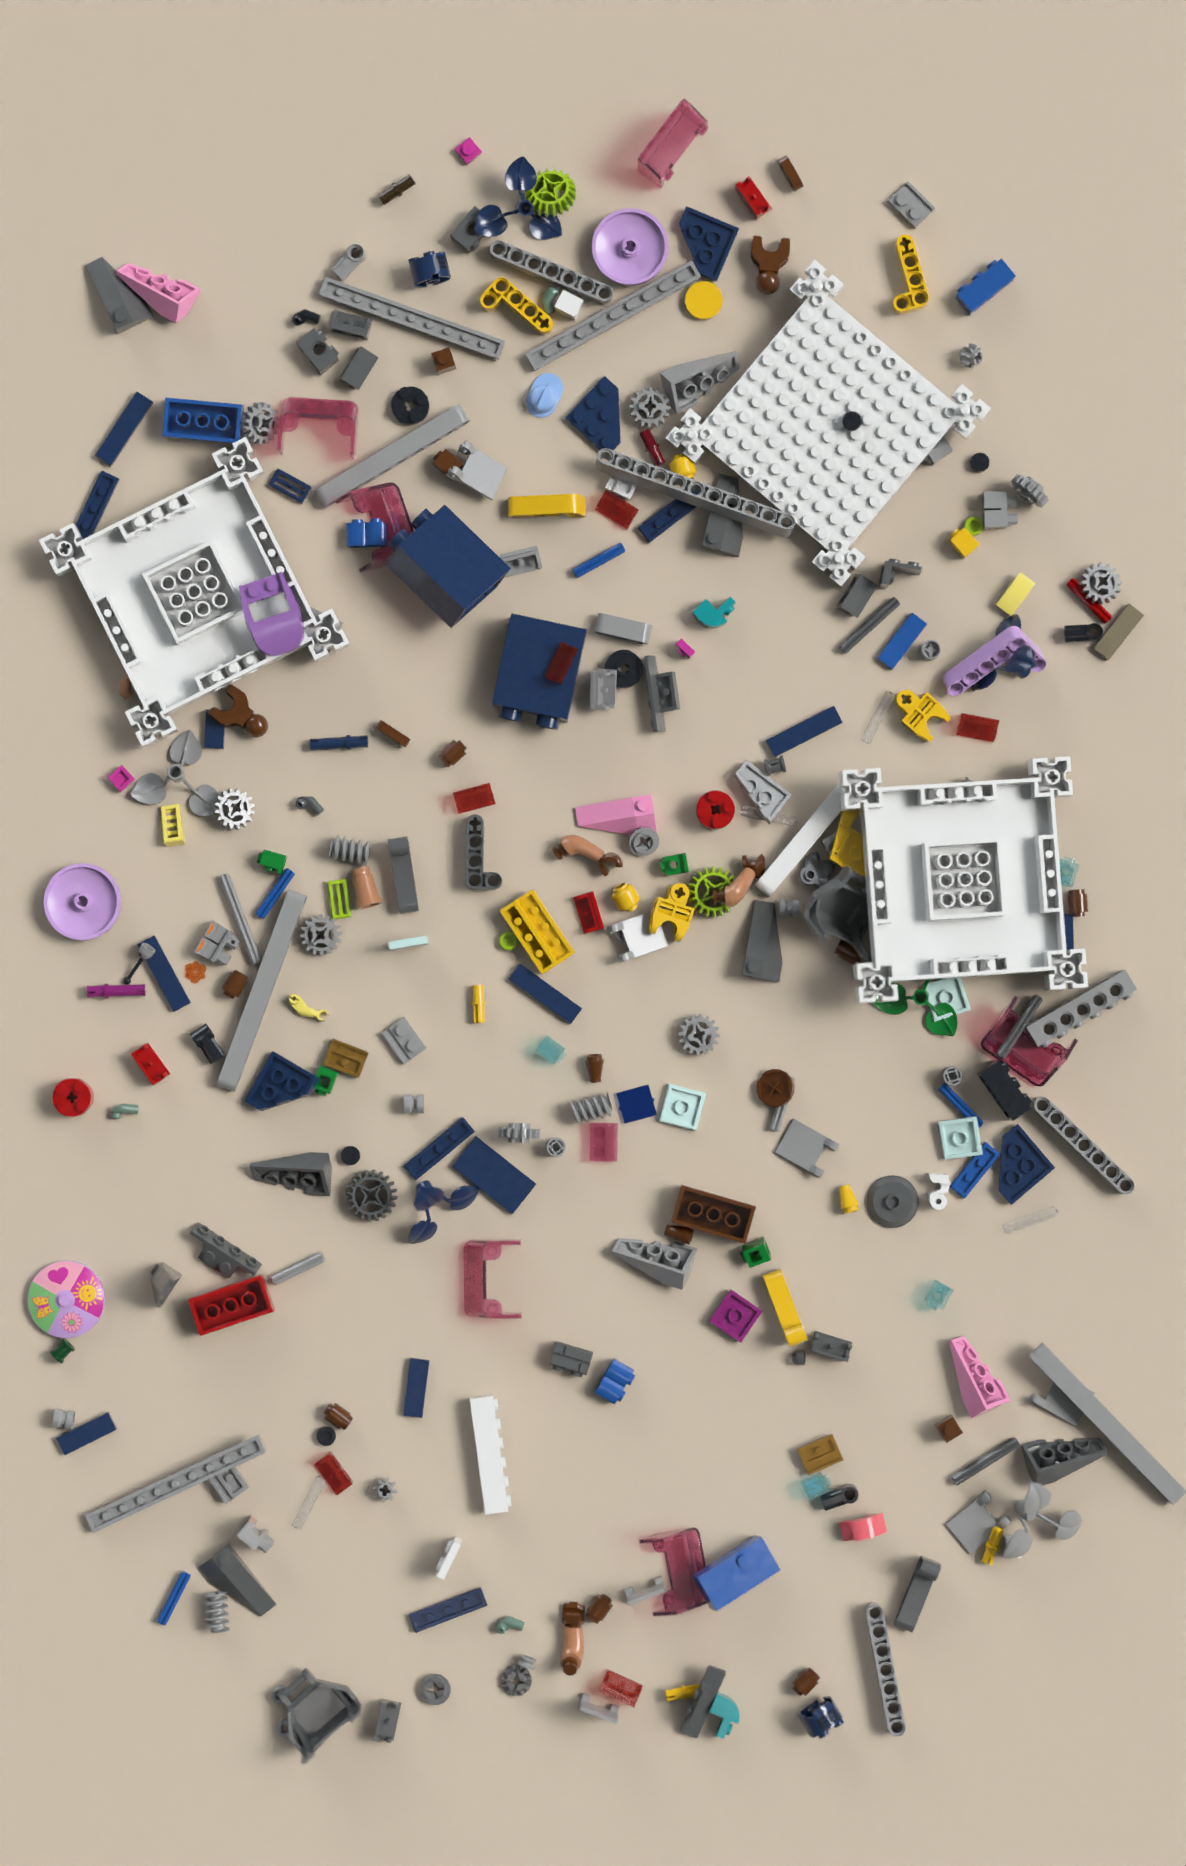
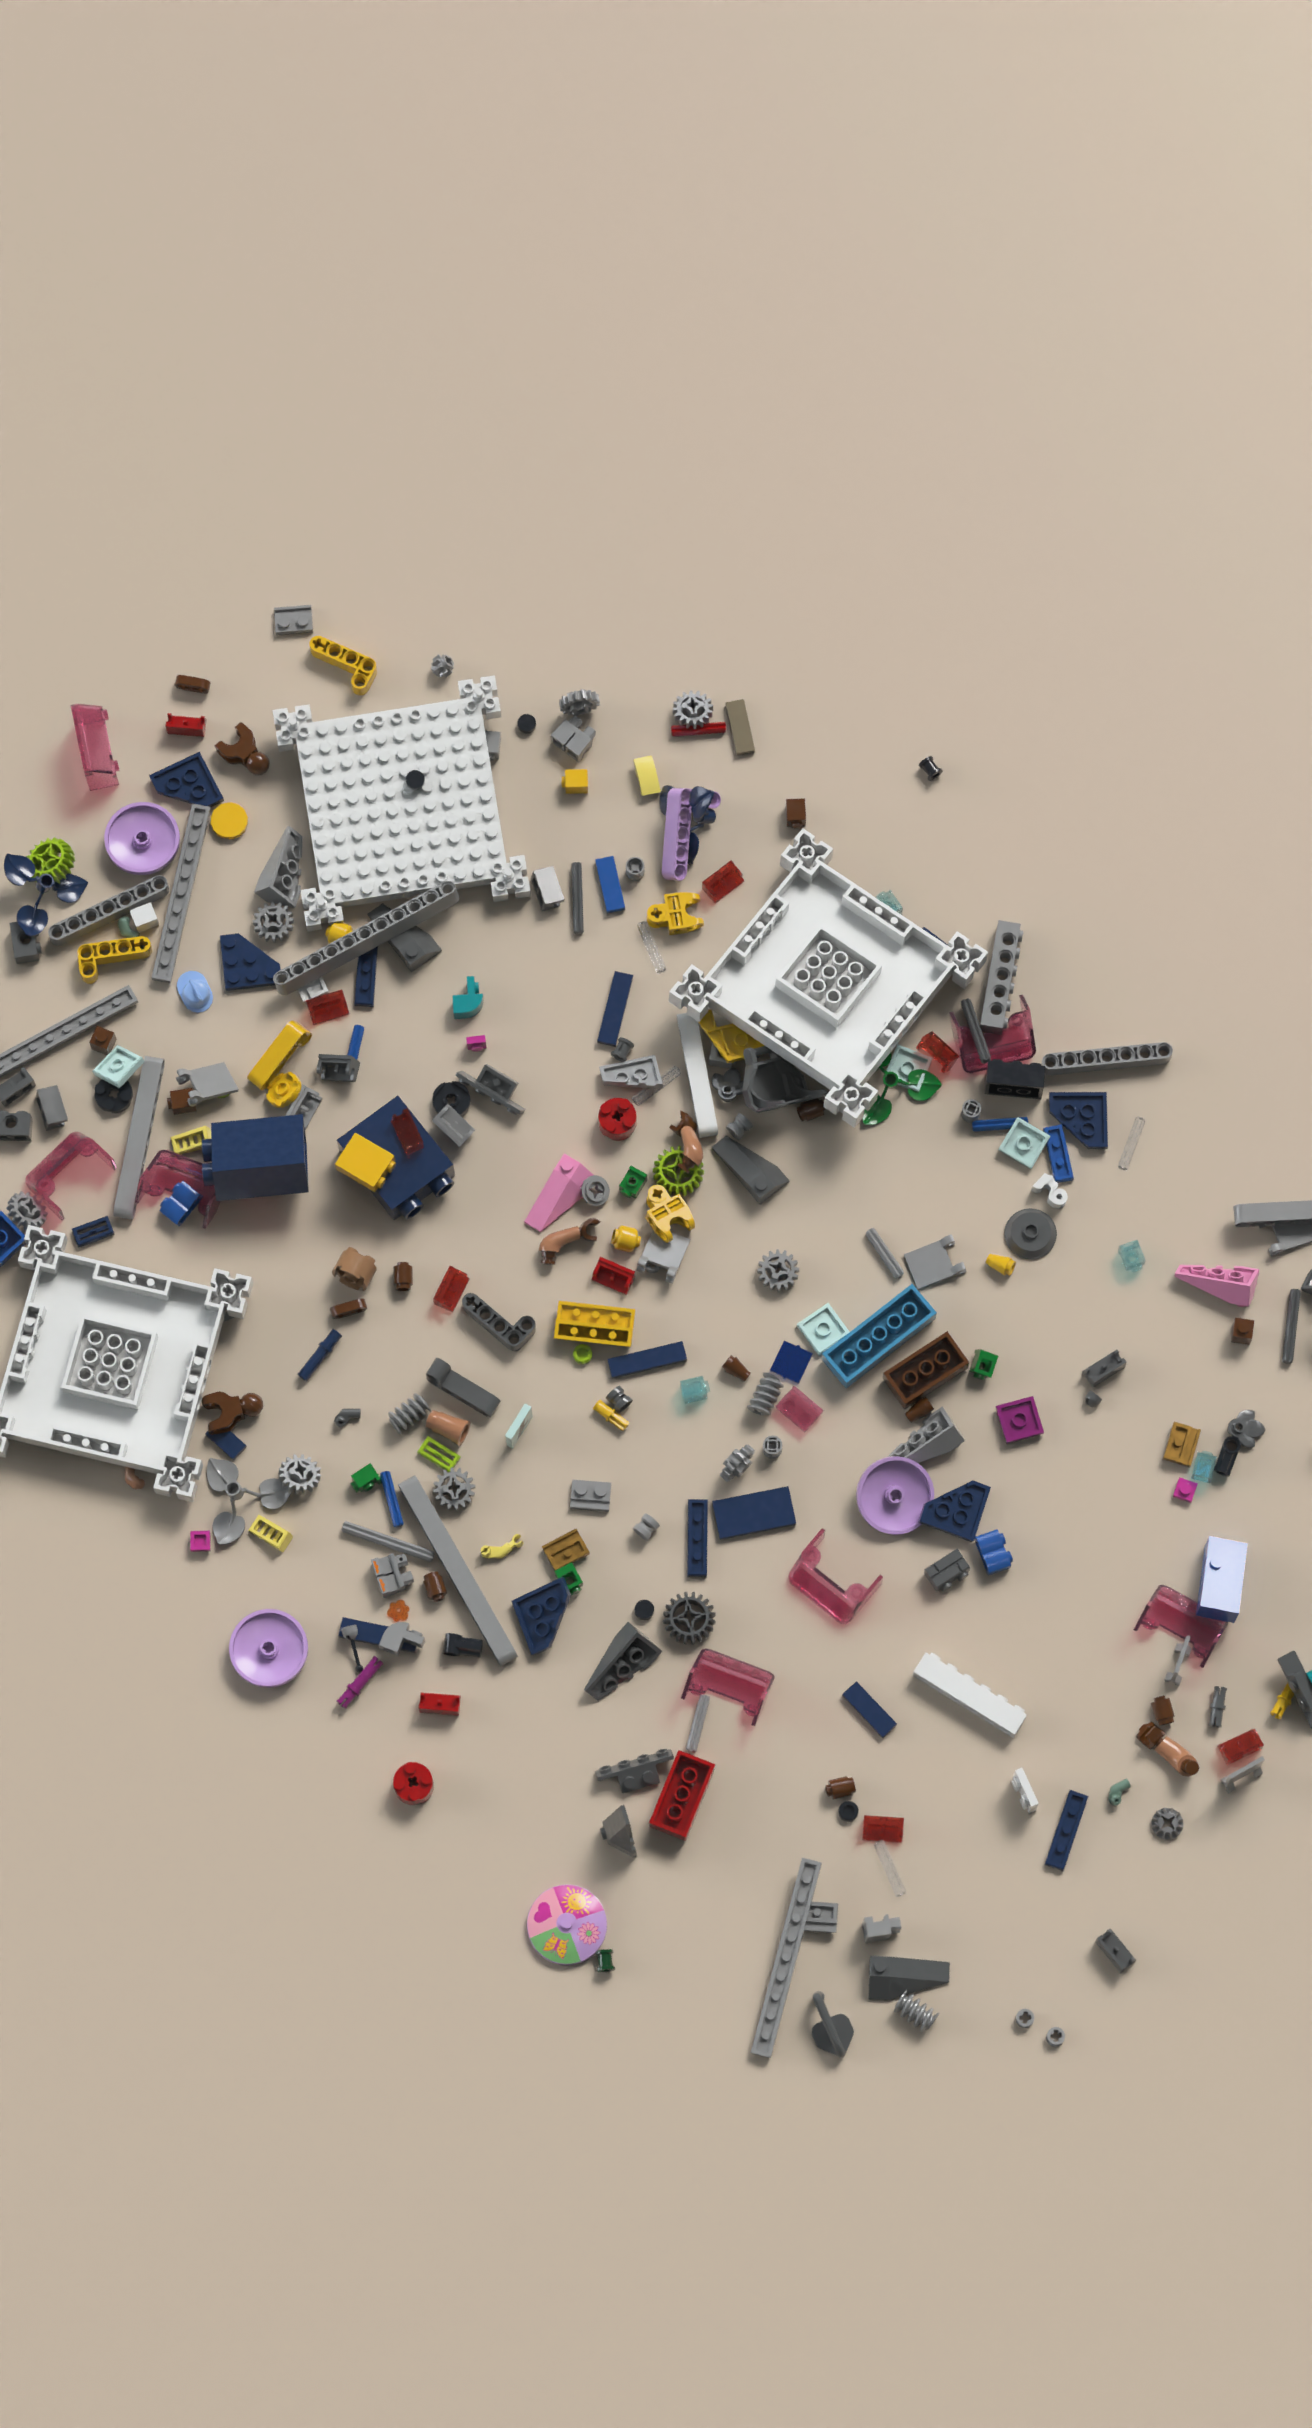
camera: 45 degrees left, 15 degrees down
(63, 1419) = (659, 2005): light grey wheel -> none
(86, 1433) = (687, 1998): dark blue tile -> none
(123, 1108) = (455, 1754): sand green arm -> none
(149, 1561) = (833, 2032): none -> dark grey piece
(173, 989) = (398, 1634): none -> light grey brick
(173, 1597) = (876, 2038): blue axle -> none
(277, 633) = (196, 1322): medium lavender slope -> none
(317, 1712) = (1062, 1995): dark grey piece -> none
(353, 1267) = (731, 1679): none -> clear pink windscreen
(390, 1487) = (929, 1804): light grey gear -> none
(410, 489) = (190, 1134): none -> light yellow slope
(425, 713) = (354, 1269): none -> medium nougat brick
(426, 1197) = (726, 1568): dark blue plant -> none
(429, 269) = (26, 993): dark blue brick -> none
(429, 1696) = (1119, 1883): flat silver gear -> none
(433, 391) = (118, 1066): none -> light aqua tile
(495, 999) = (619, 1399): none -> dark grey wheel
(509, 652) = (365, 1162): none -> yellow brick
(521, 534) = (283, 1089): none -> yellow tile
(526, 1662) = (1159, 1801): light grey bush -> none
(573, 561) = (338, 1067): none -> dark grey hinge
(595, 1272) = (893, 1494): none -> lavender dish
(623, 628) = (420, 1075): light grey beam -> none
(624, 1328) = (957, 1510): none -> dark blue plate
(637, 1646) = (1217, 1706): none -> dark grey pin
(652, 447) = (303, 944): dark red axle -> none
(710, 1156) = (879, 1336): none -> dark azure brick
(775, 1088) = (868, 1247): reddish brown tile -> none
(785, 1308) = (1045, 1378): yellow beam -> none
(786, 1485) = (1185, 1490): none -> dark pink plate
(863, 1528) = (1266, 1457): coral brick -> none
(876, 1494) = (1248, 1428): none -> dark grey plate
(889, 567) = (550, 841): dark grey bracket -> none
(974, 525) = (569, 763): lime tile -> none
(980, 1011) = (938, 1050): none -> clear red hinge
(985, 286) = (400, 615): blue brick -> none
(1078, 902) = (918, 915): reddish brown brick -> none
(1080, 633) = (717, 752): black piece -> none
(1082, 736) = (796, 813): none -> reddish brown brick

